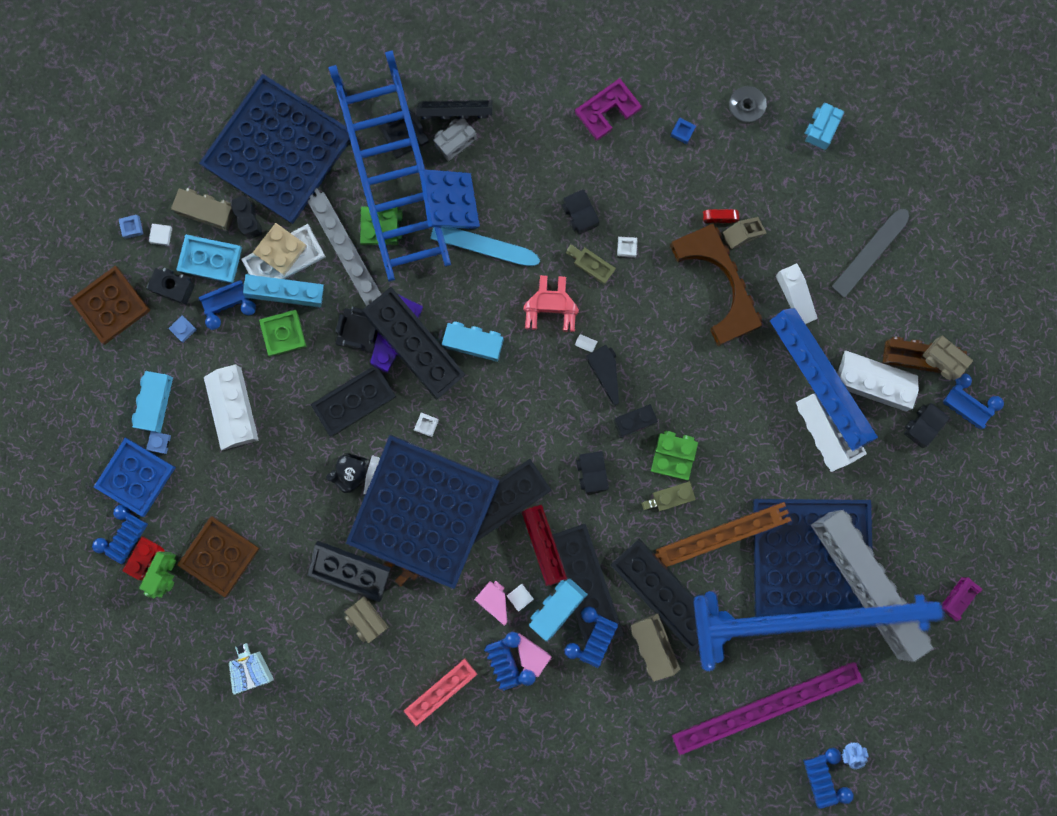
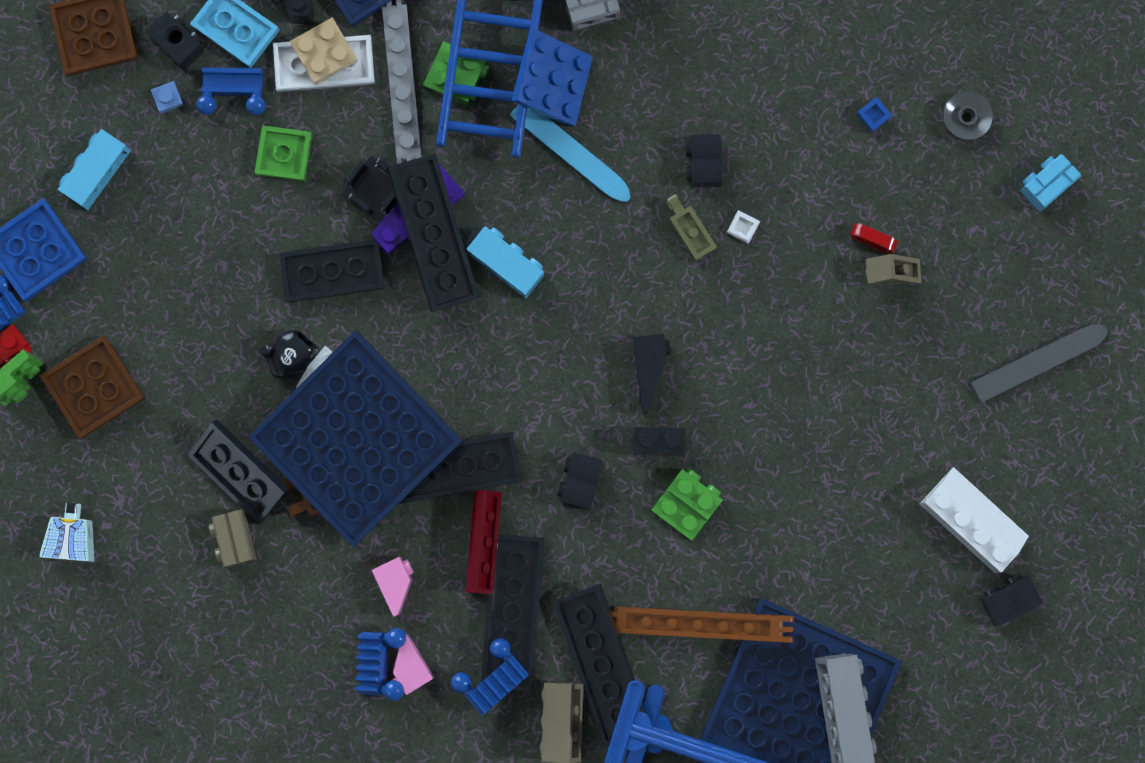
camera: 20 degrees right, 0 degrees up
(158, 442) = (80, 220): medium blue plate -> none
(230, 407) = (183, 216): white slope -> none
(283, 290) = (305, 103): medium azure brick -> none
(426, 425) = (406, 337): white tile -> none
(440, 692) = (283, 663): coral plate -> none
(520, 597) = (427, 592): white tile -> none
(551, 302) = (620, 254): coral connector -> none
(557, 609) = (465, 625): medium azure brick -> none
(586, 343) = (641, 322): white tile -> none
(614, 95) = (806, 35): magenta plate -> none
(670, 497) = (661, 552): olive plate -> none
(707, 246) = (840, 267): reddish brown arch -> none
(797, 292) = (924, 373): white slope -> none
(823, 379) = (908, 489): blue brick -> none
(826, 434) = (892, 553): white slope -> none
(908, 354) = (1046, 516): reddish brown brick -> none
(947, 358) = (1070, 530): dark tan brick -> none
(968, 406) = (1073, 600): blue gear -> none

